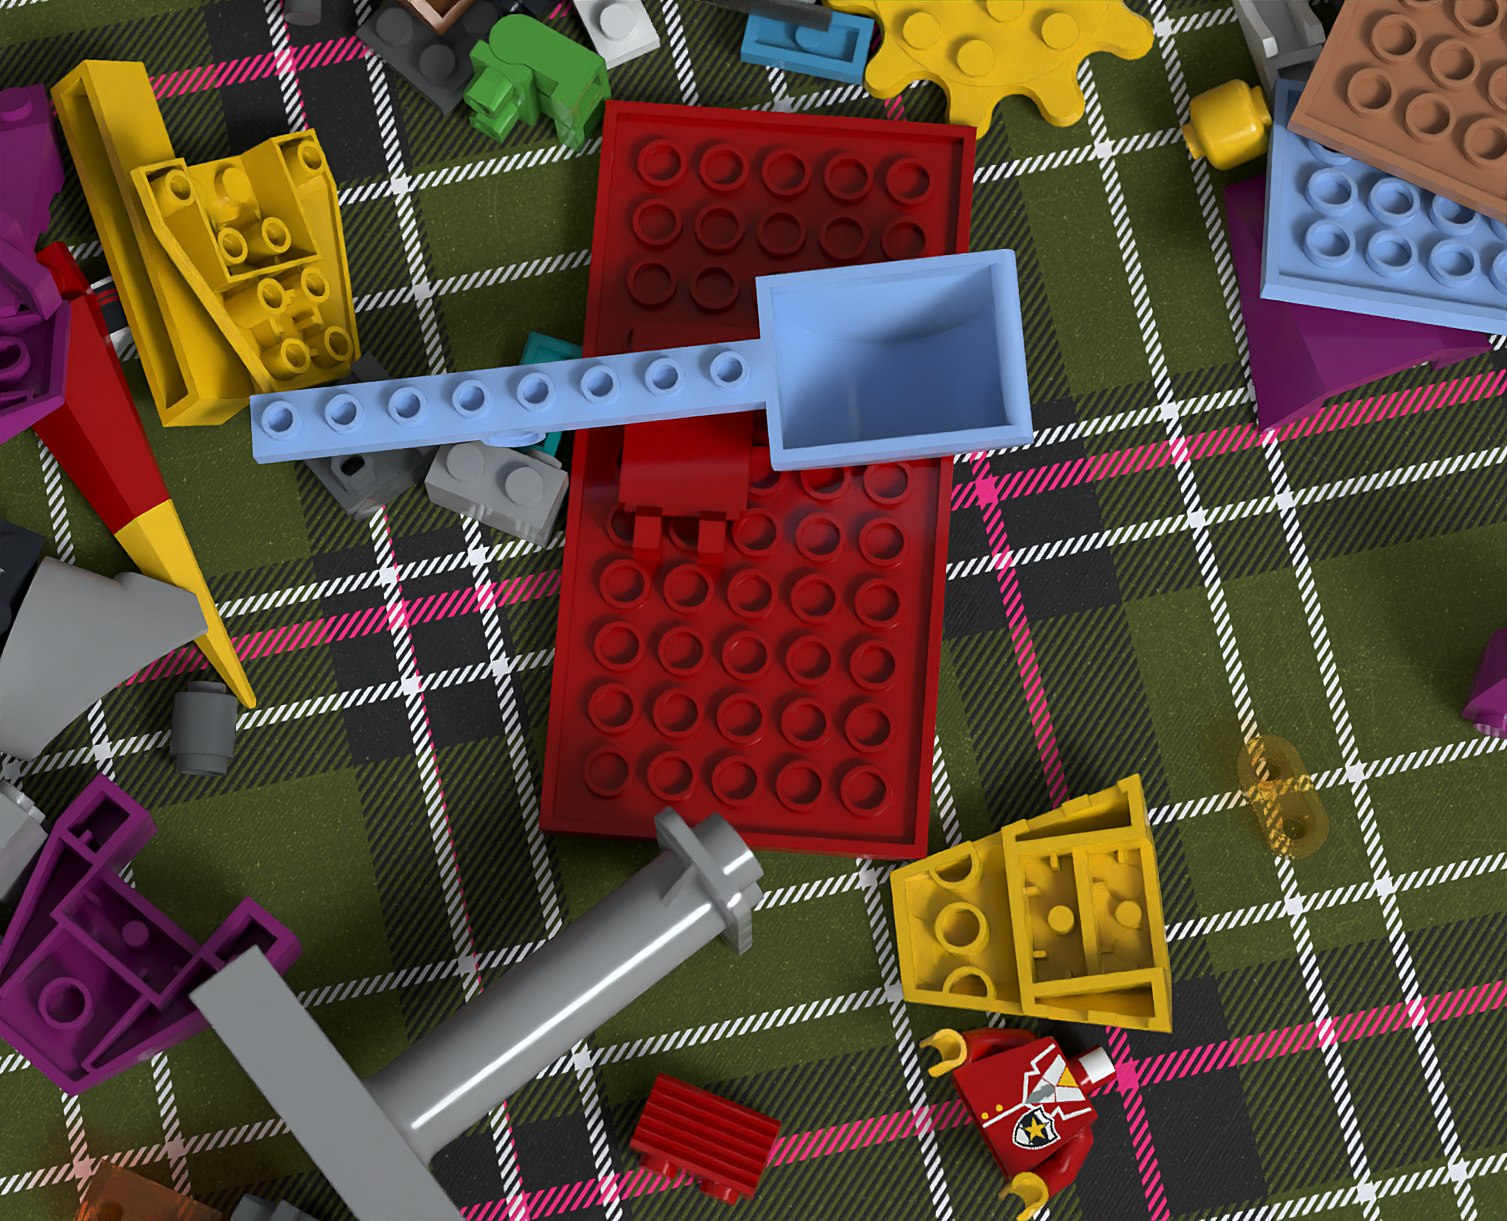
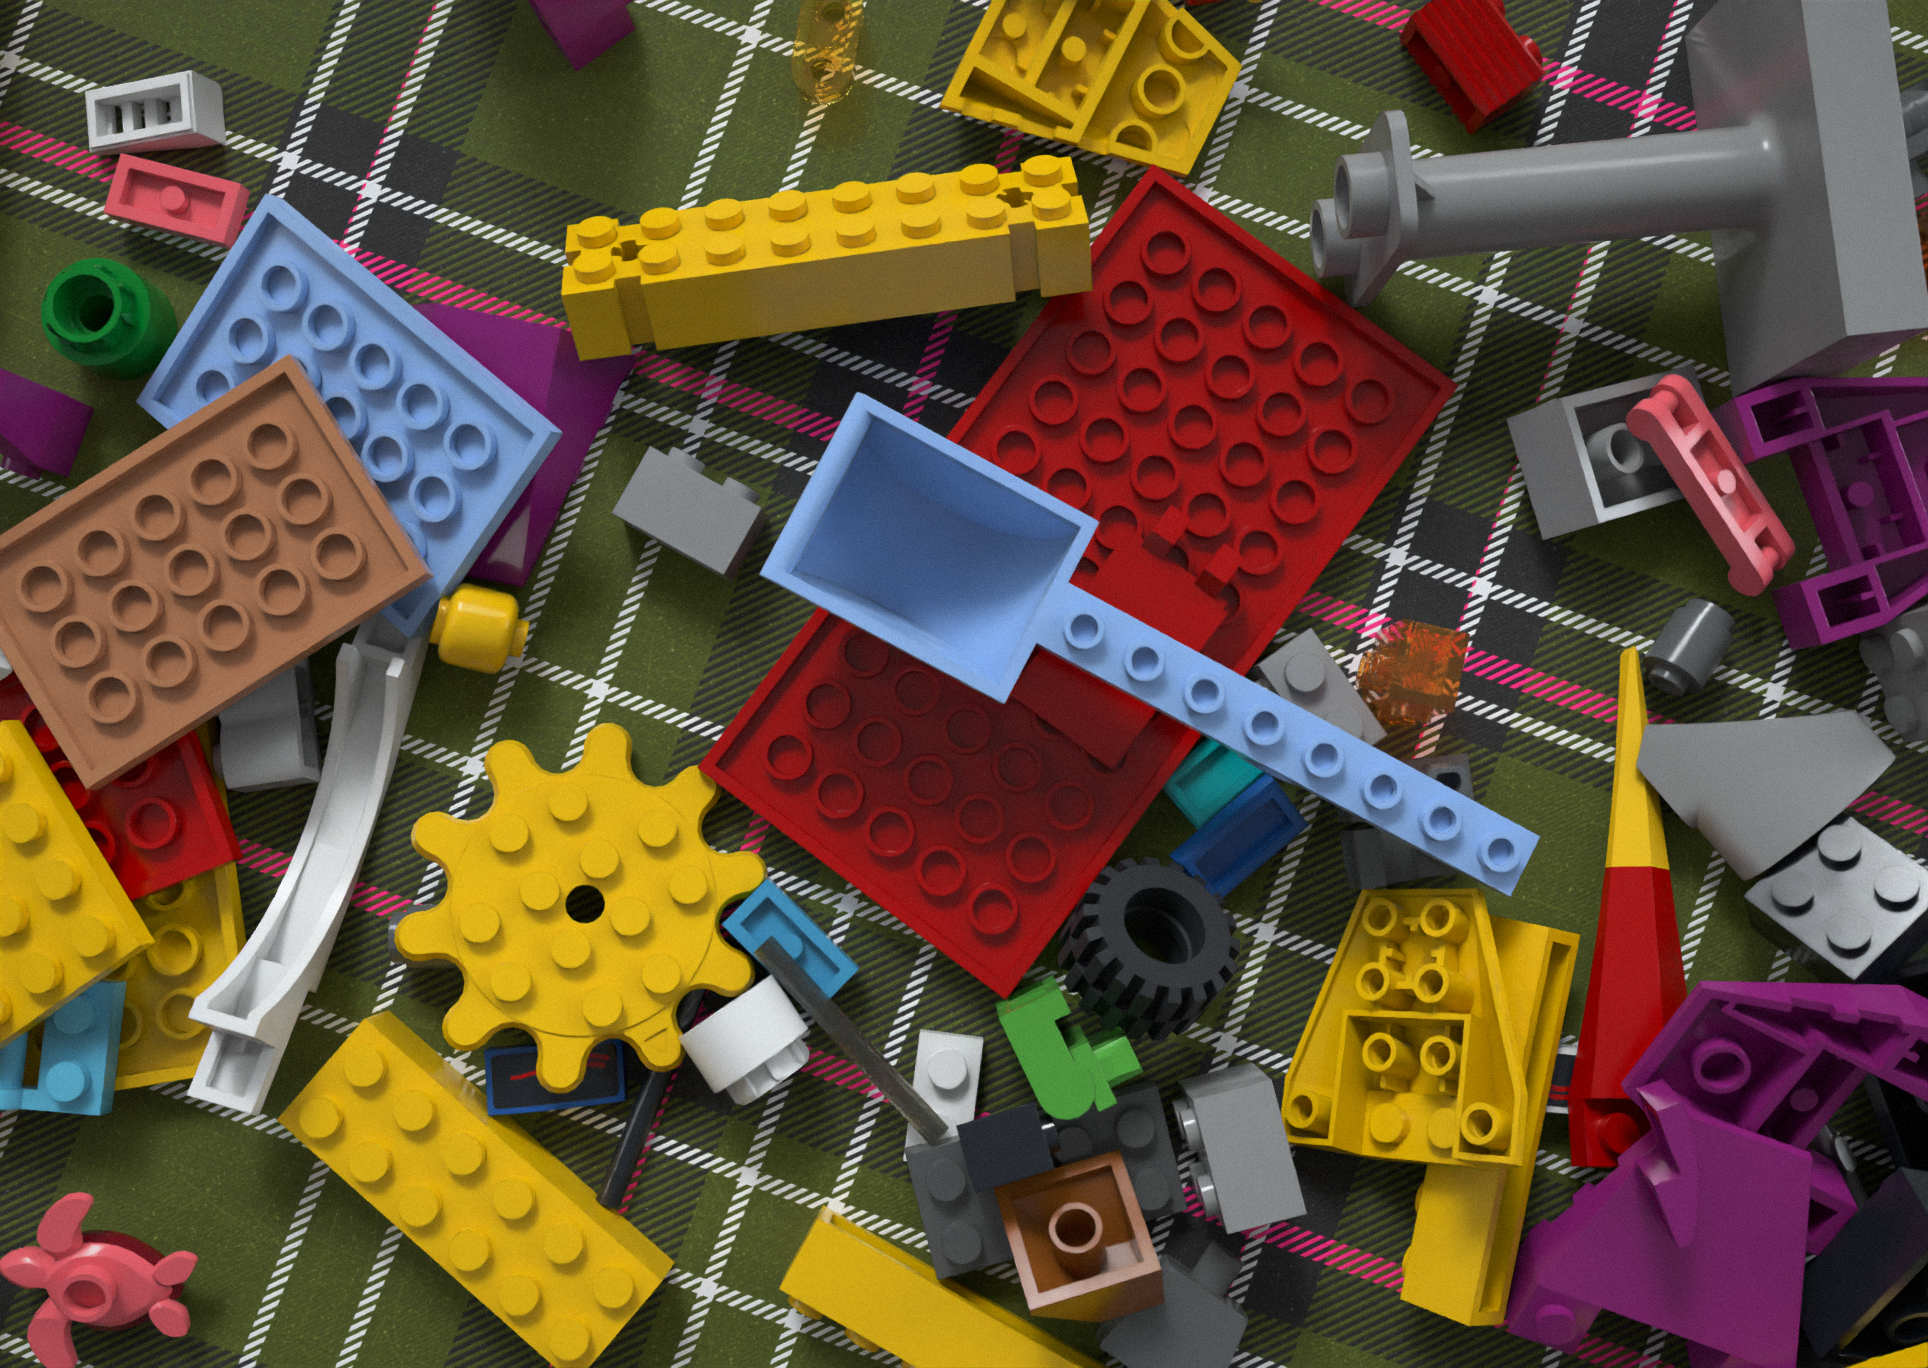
camera: 145 degrees left, 10 degrees up
(267, 870) = (1713, 482): none -> coral plate
(347, 92) = (1241, 1148): none -> light grey brick
(363, 860) = (1586, 462): none -> light grey slope
(435, 547) = (1412, 672): none -> clear orange brick
(496, 326) = (1241, 837): none -> blue tile
(509, 244) = (1122, 980): none -> black tyre
(1121, 325) = (691, 512): none -> light grey brick
(1146, 589) = (826, 257): none -> yellow brick

